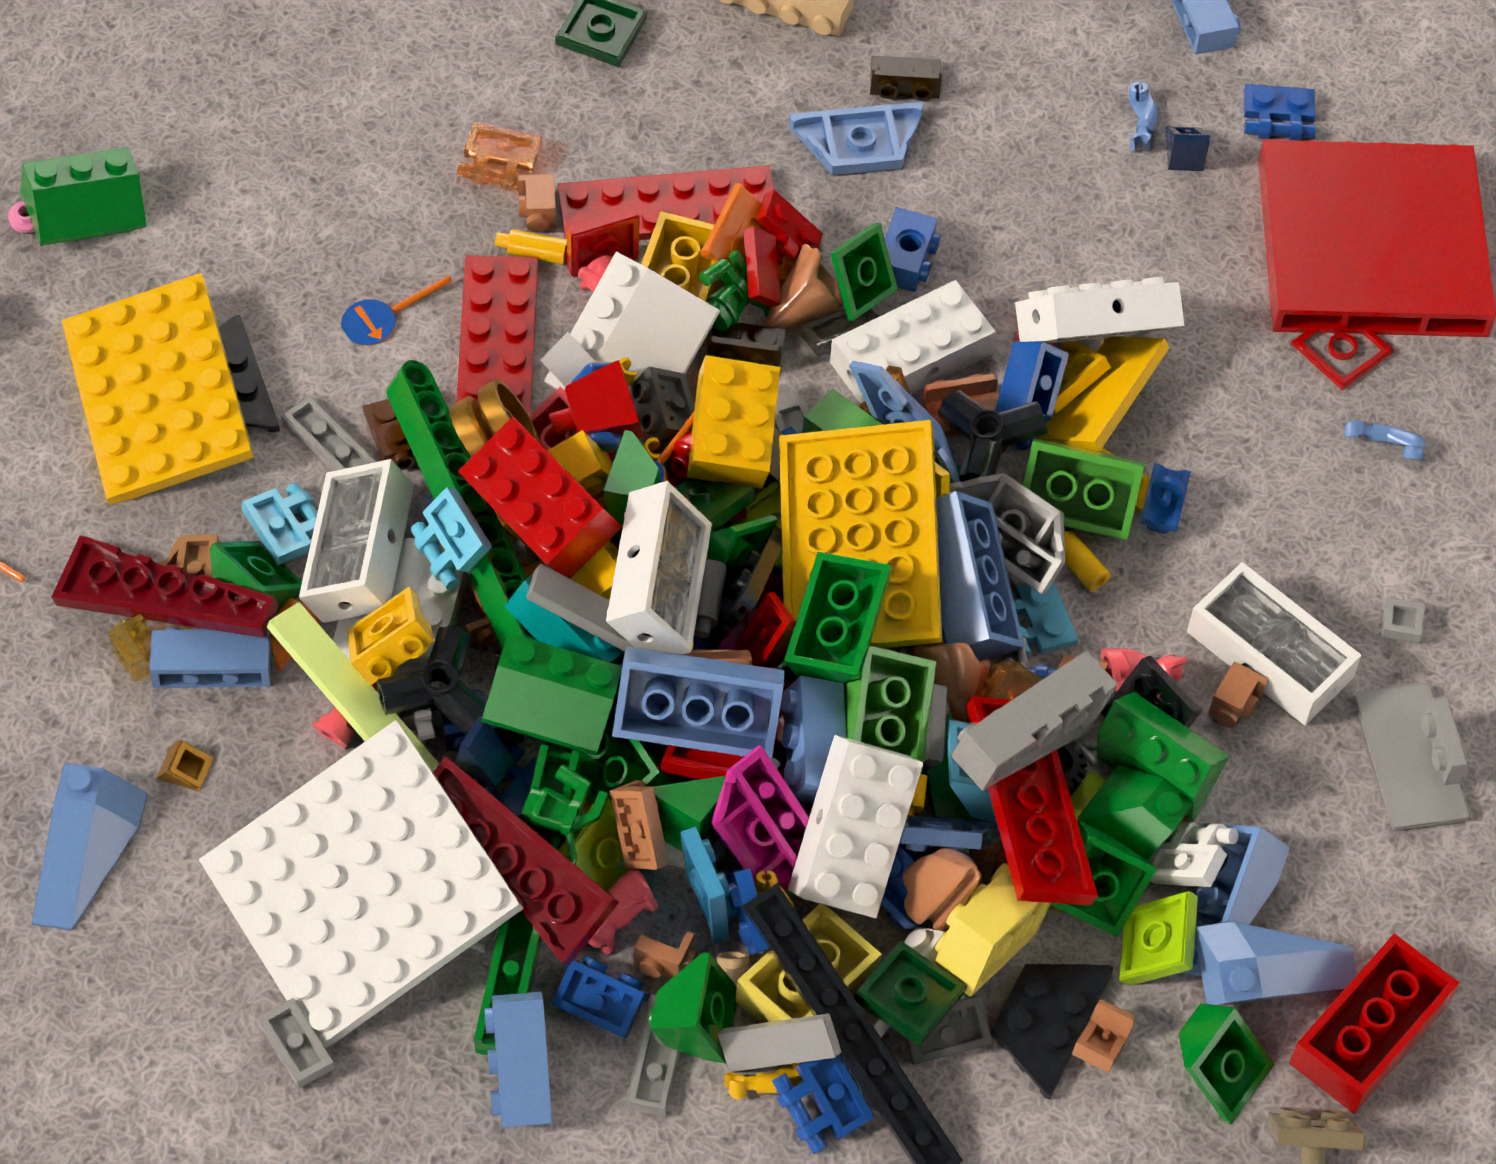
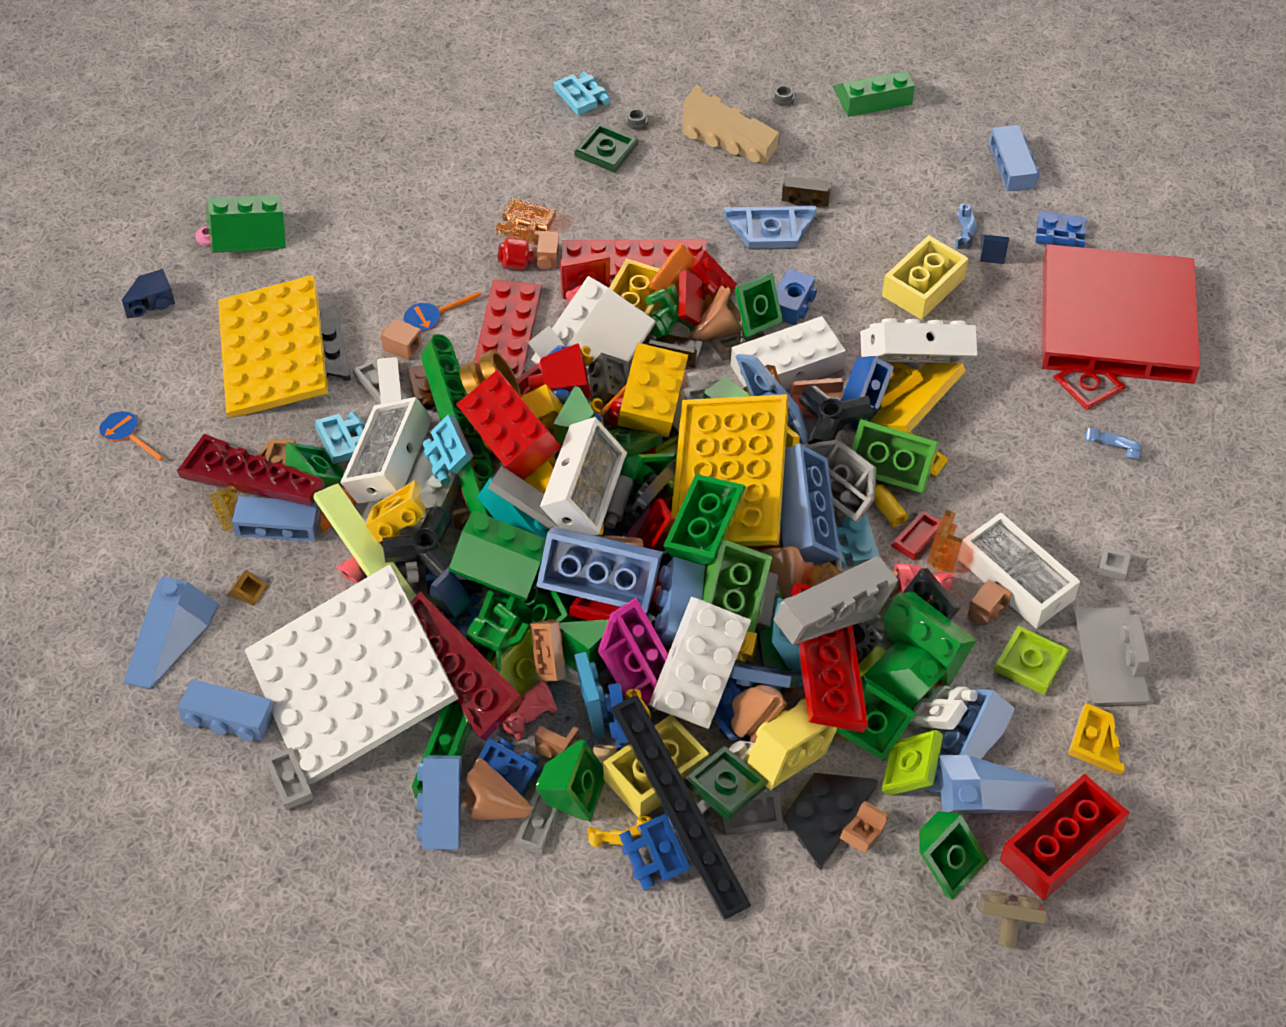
camera: 10 degrees right, 5 degrees down
(189, 953) = (226, 710): none -> medium blue brick
(338, 430) = (389, 380): none -> white sticker
(345, 362) = (401, 339): none -> nougat brick
(492, 212) = (515, 254): none -> red head
(531, 244) = (536, 275): yellow cylinder -> none
(588, 1043) = (492, 796): none -> nougat hat
(779, 1042) = (627, 808): light grey tile -> none
(1094, 204) = (925, 277): none -> light yellow brick
(1127, 600) = (917, 535): none -> red tile
(1164, 499) = (951, 469): blue hips -> none
(1169, 619) = (945, 545): none -> clear orange bracket
(1303, 772) = (1031, 660): none -> lime plate
(1402, 881) = (1096, 740): none -> yellow wing

